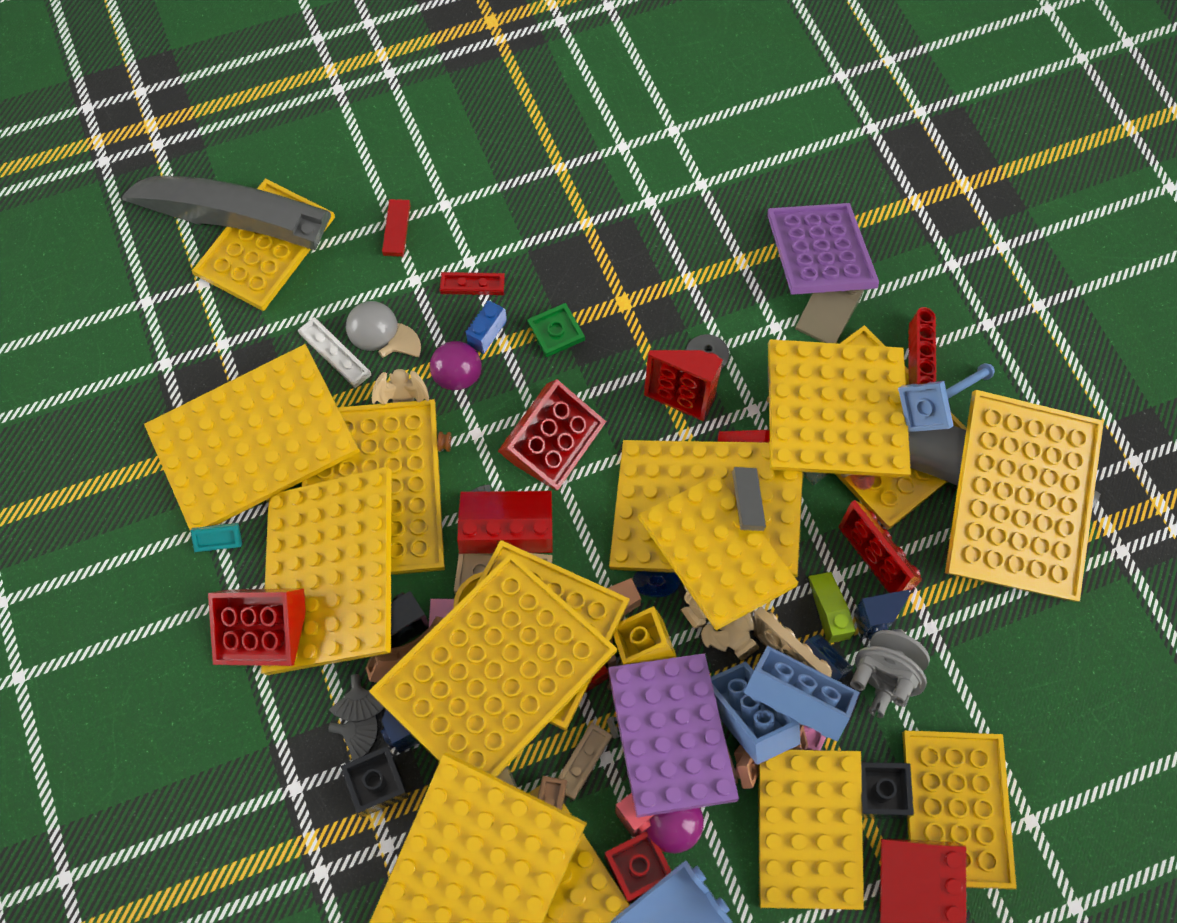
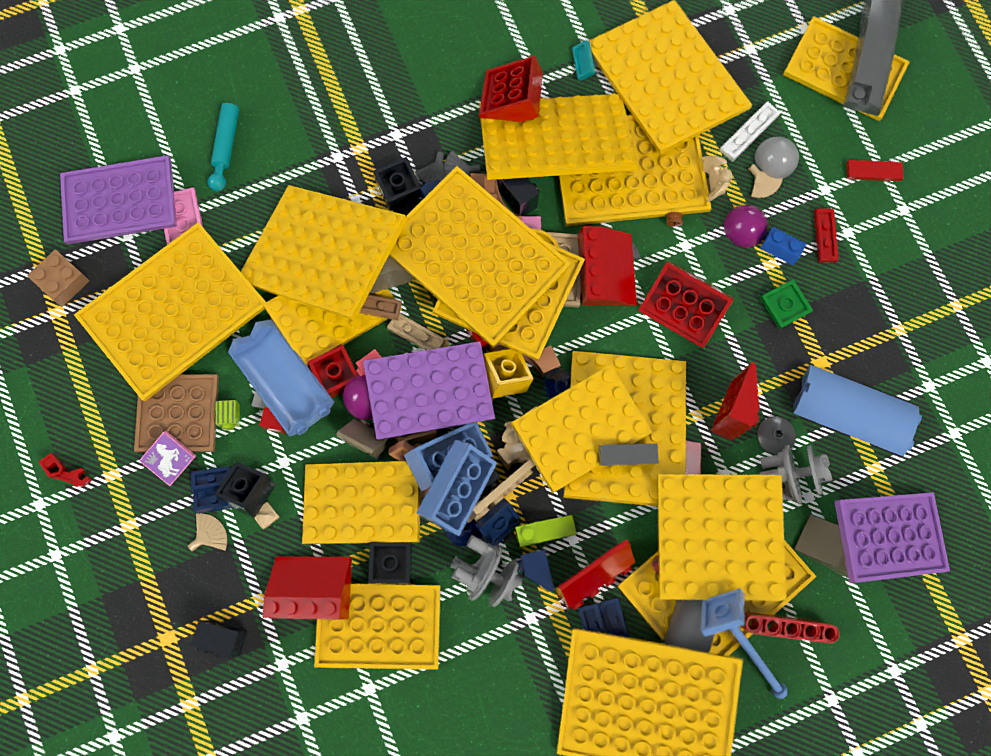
camera: 85 degrees right, 10 degrees up
(681, 271) = (857, 410): none -> medium blue cylinder
(729, 824) = (363, 438): none -> dark tan slope
(758, 336) = (790, 474): none -> light grey piece
(927, 544) = (605, 618): none -> dark blue slope

